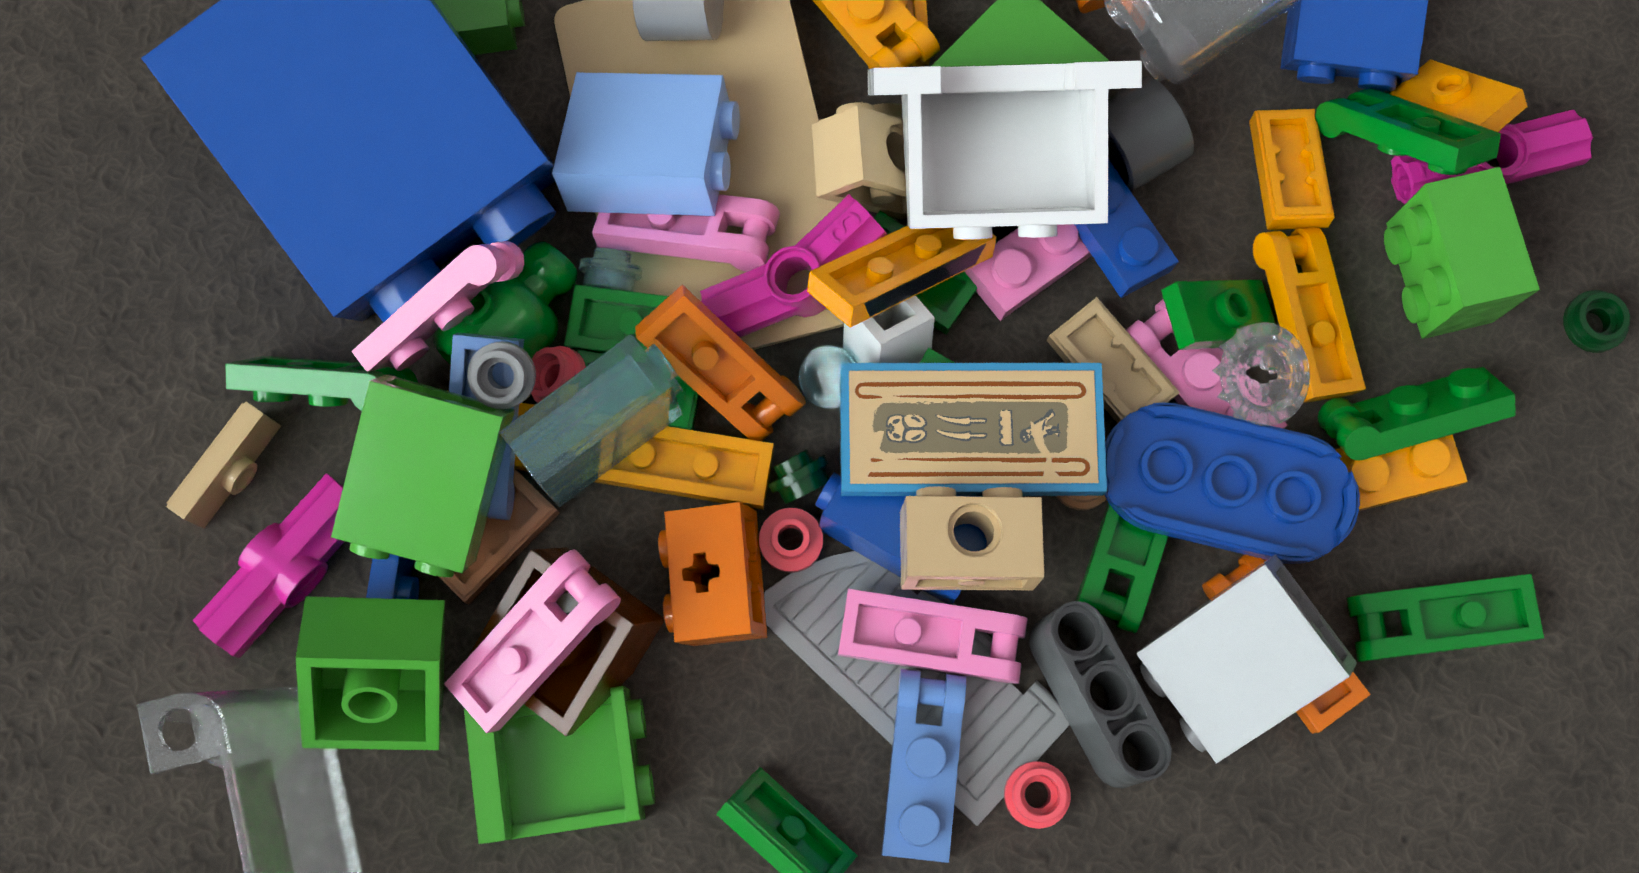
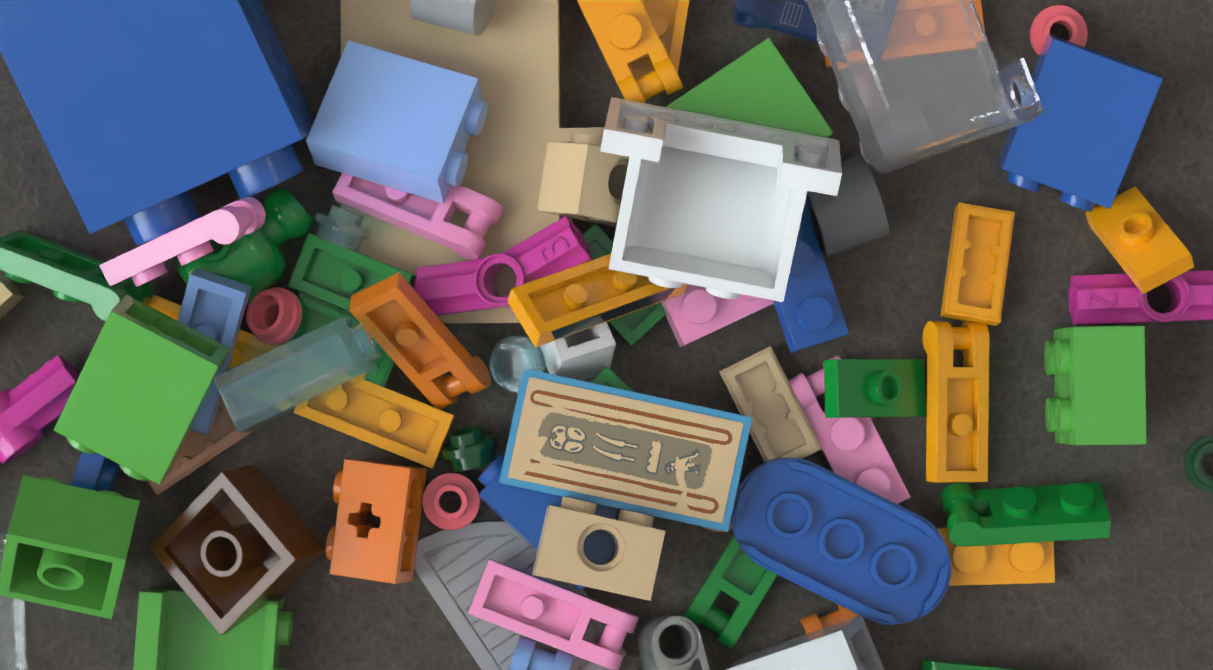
camera: 10 degrees right, 10 degrees up
(481, 378) = (217, 335): light grey plate -> none
(531, 642) = (206, 554): bright pink plate -> none
(1274, 351) = (902, 476): clear gear -> none
(1410, 130) = (1083, 262): green plate -> none

